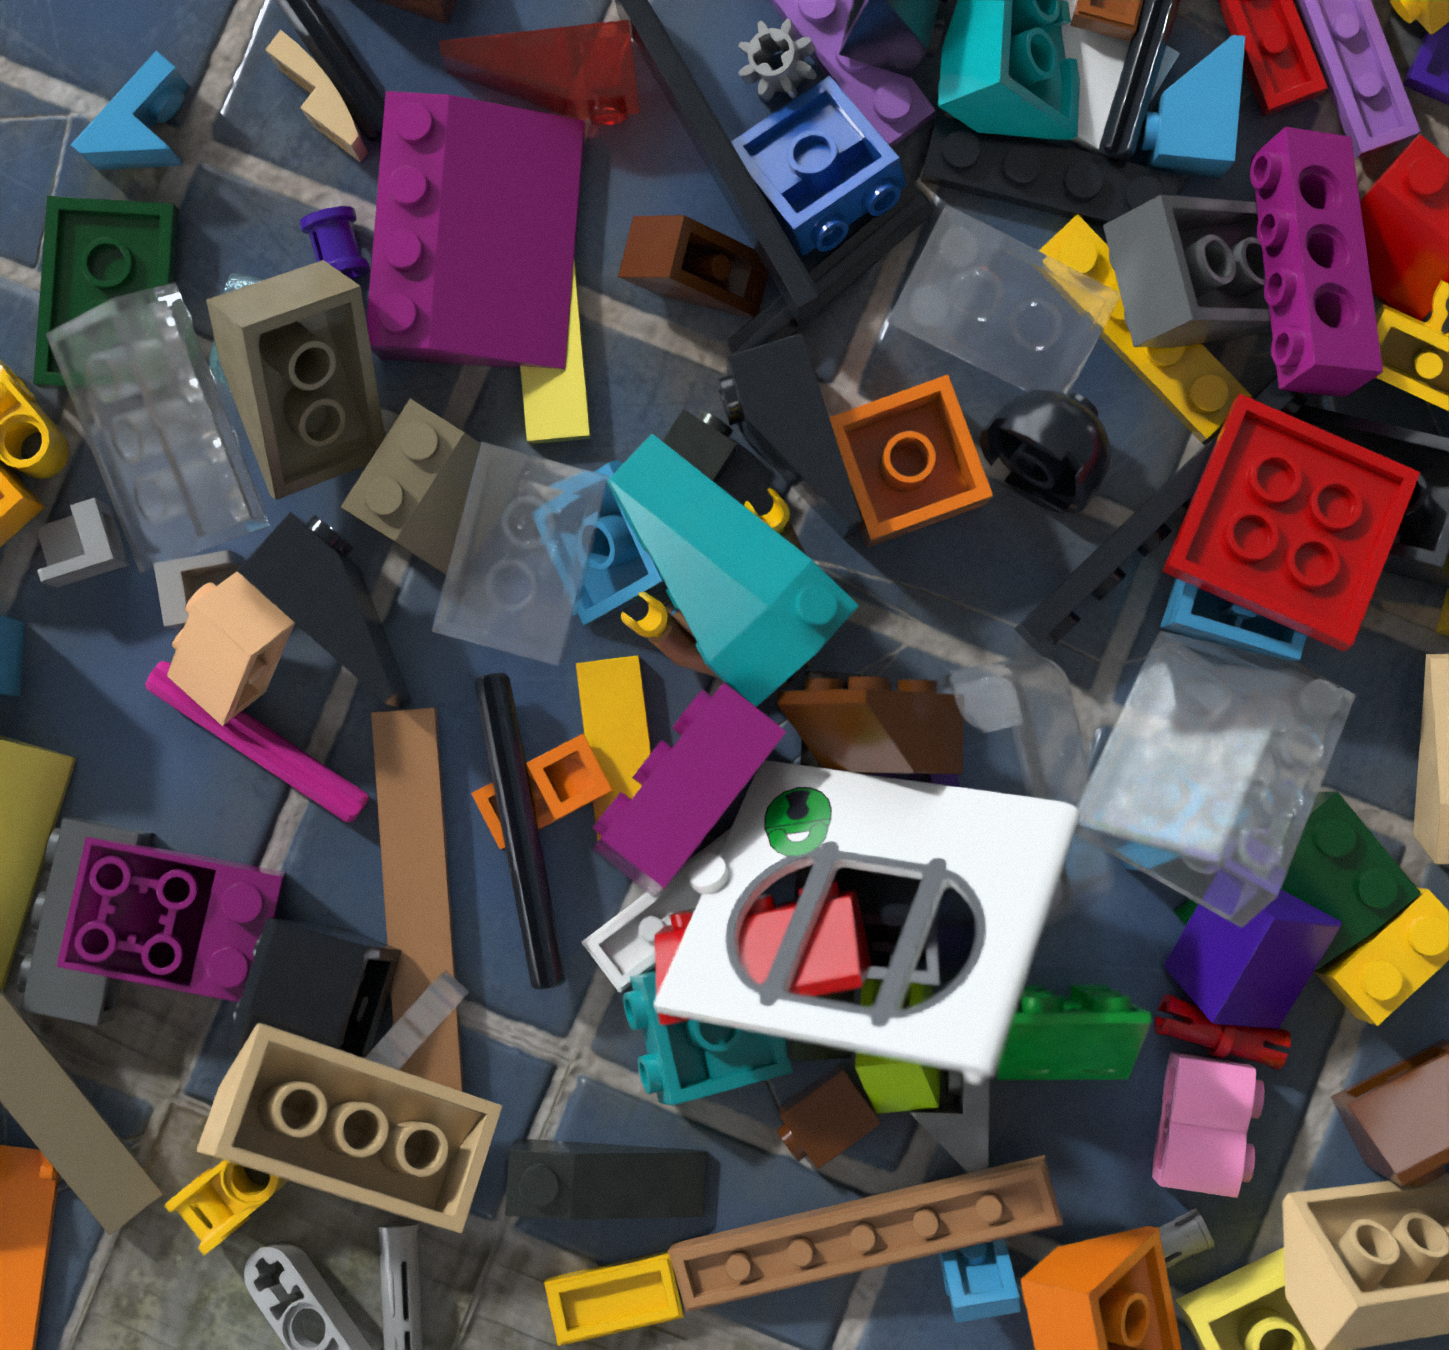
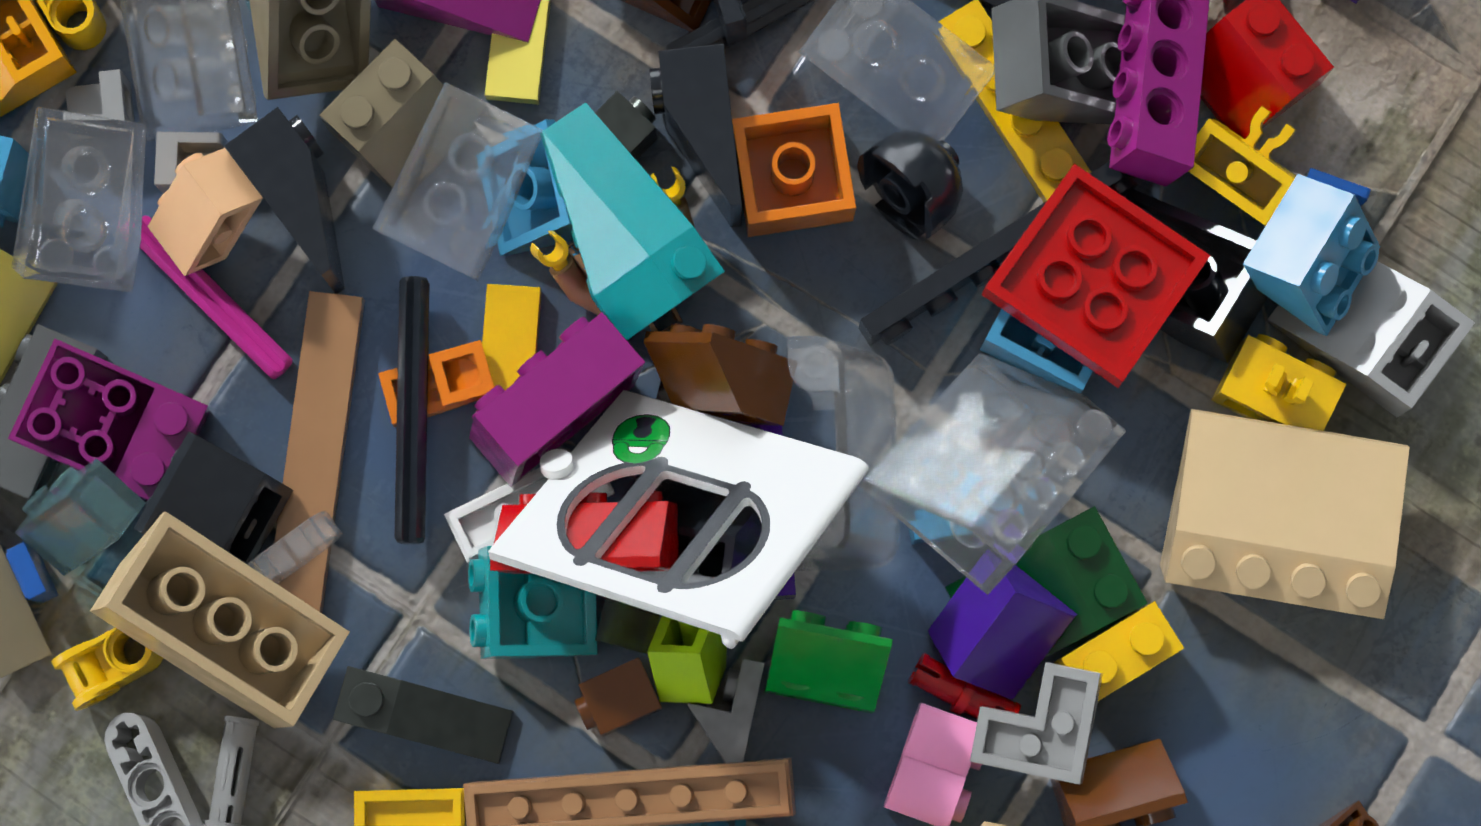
camera: 10 degrees right, 5 degrees down
(83, 665) = (82, 201): none -> clear slope
(118, 1106) = (31, 573): none -> blue tile
(160, 1037) = (78, 516): none -> clear light blue brick
(1345, 1079) = (1051, 742): none -> light grey plate

